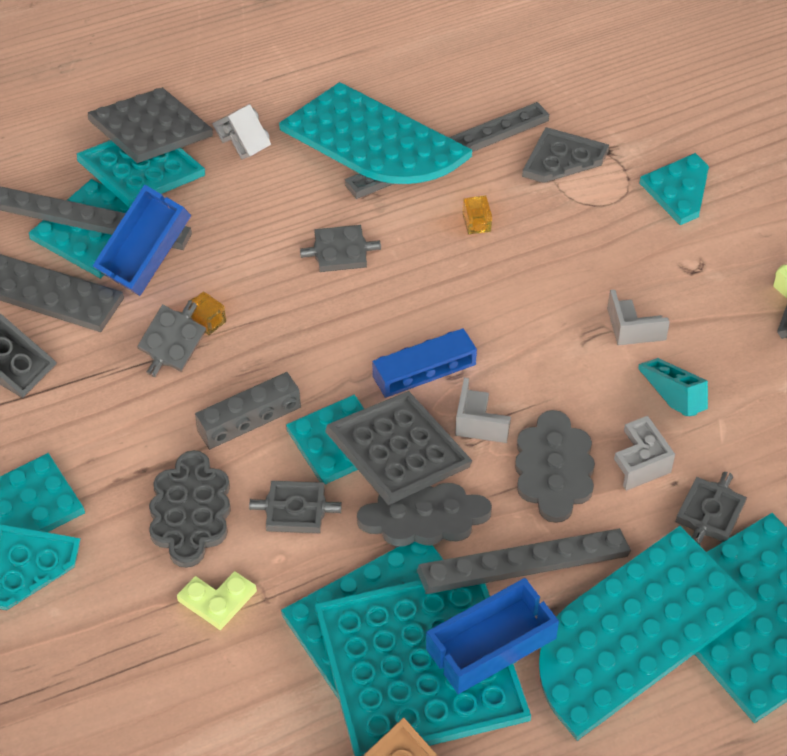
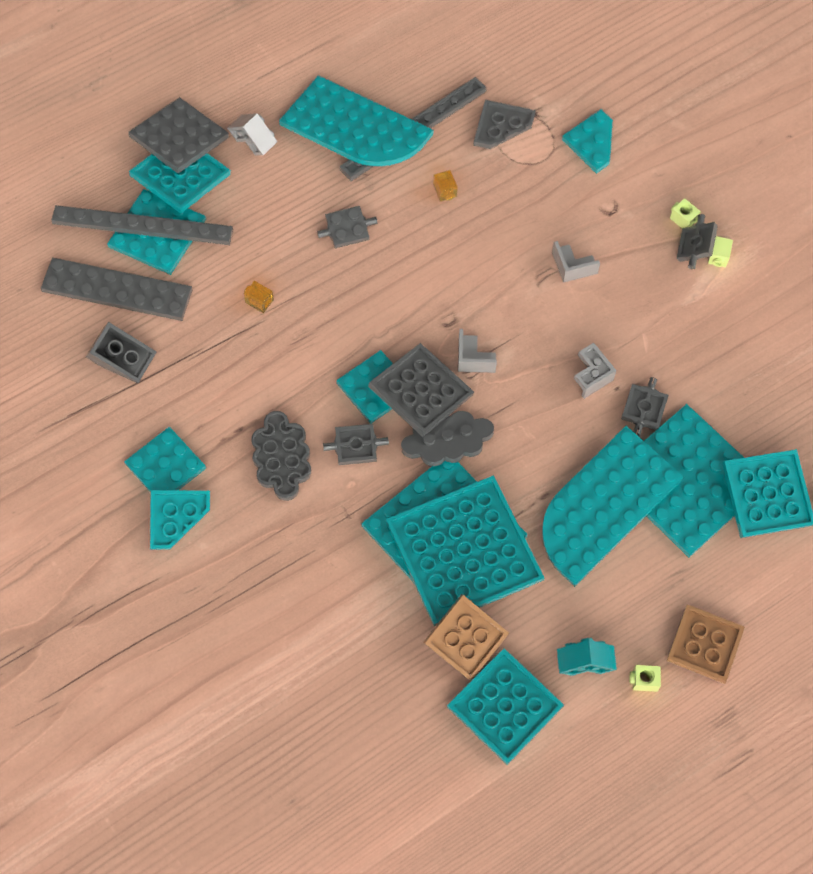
camera: 10 degrees left, 15 degrees up
(142, 240) = (200, 245): blue piece -> none
(171, 338) = (239, 322): dark grey plate -> none
(220, 604) = (314, 525): yellowish green plate -> none
(248, 410) = (307, 373): dark grey brick -> none
(424, 362) = (426, 317): blue brick -> none
(491, 635) = (511, 527): blue piece -> none
(522, 560) = (522, 466): dark grey plate -> none
(554, 466) = (532, 386): dark grey plate -> none
(677, 386) = (610, 313): teal slope -> none

